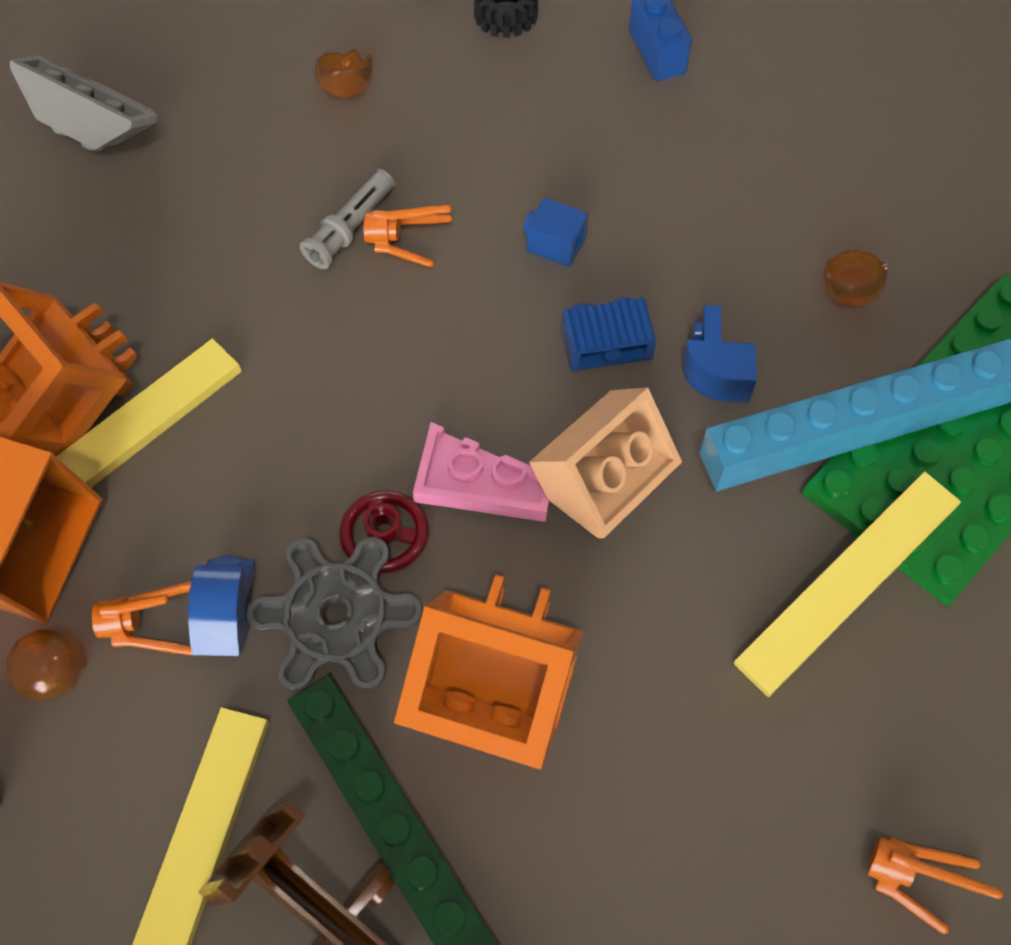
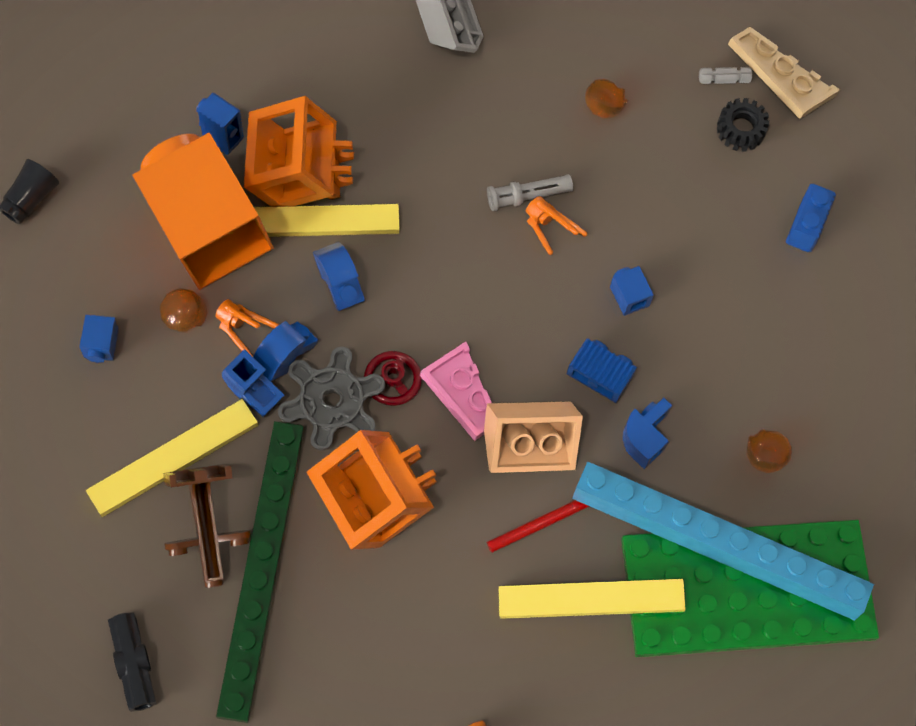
camera: 35 degrees right, 5 degrees up
(210, 679) = (247, 381): none -> blue brick
(213, 459) = (340, 274): none -> blue brick
(701, 559) = (535, 525): none -> red bar

